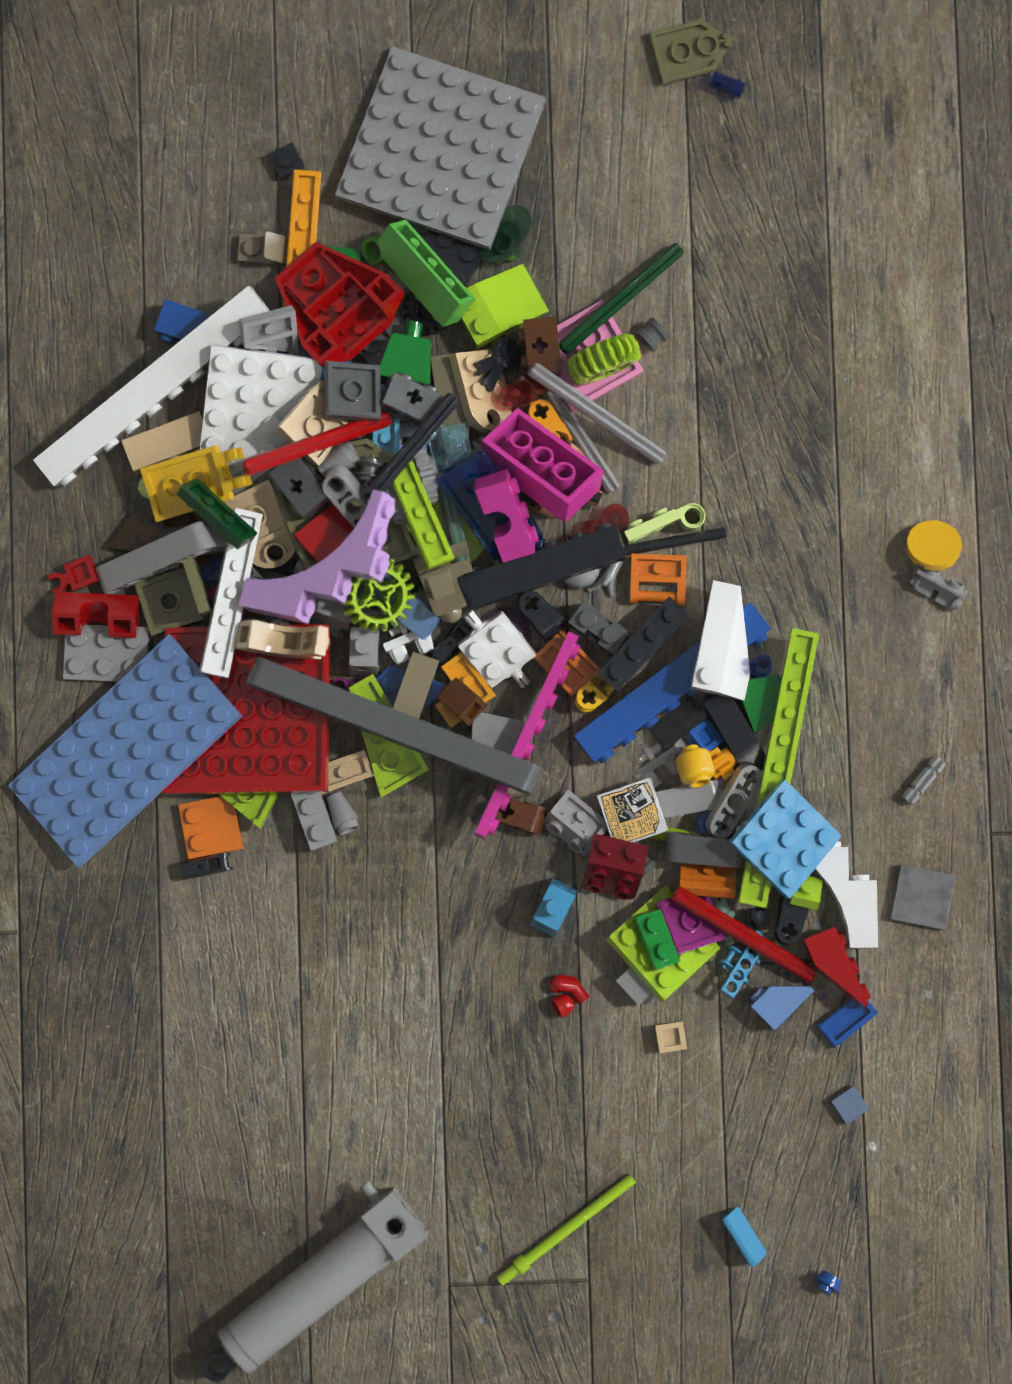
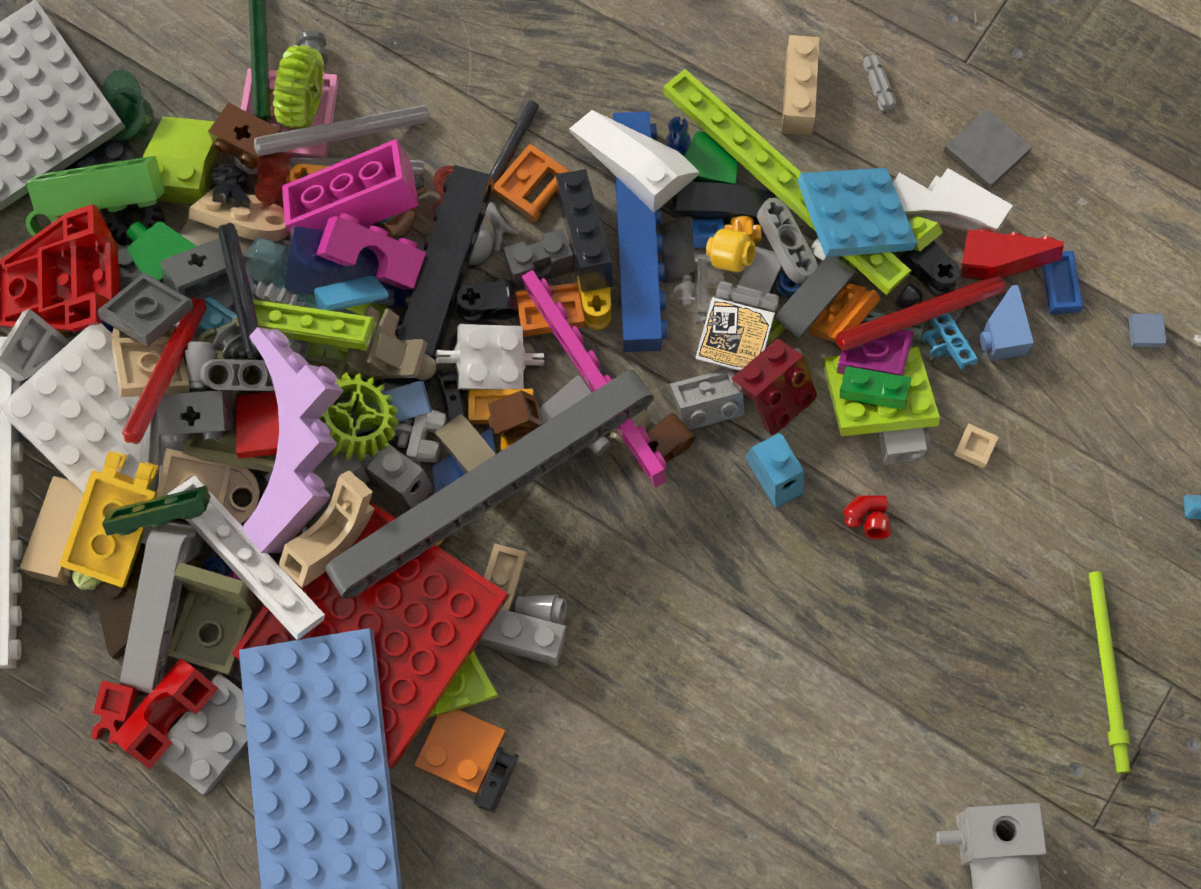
camera: 45 degrees left, 15 degrees down
(390, 762) = (518, 522): lime wing -> none
(466, 522) = (349, 293): none -> dark azure slope
(663, 519) = (488, 129): yellowish green plate -> none
(667, 802) = (747, 296): none -> light grey axle
(876, 723) = (800, 85): none -> tan brick

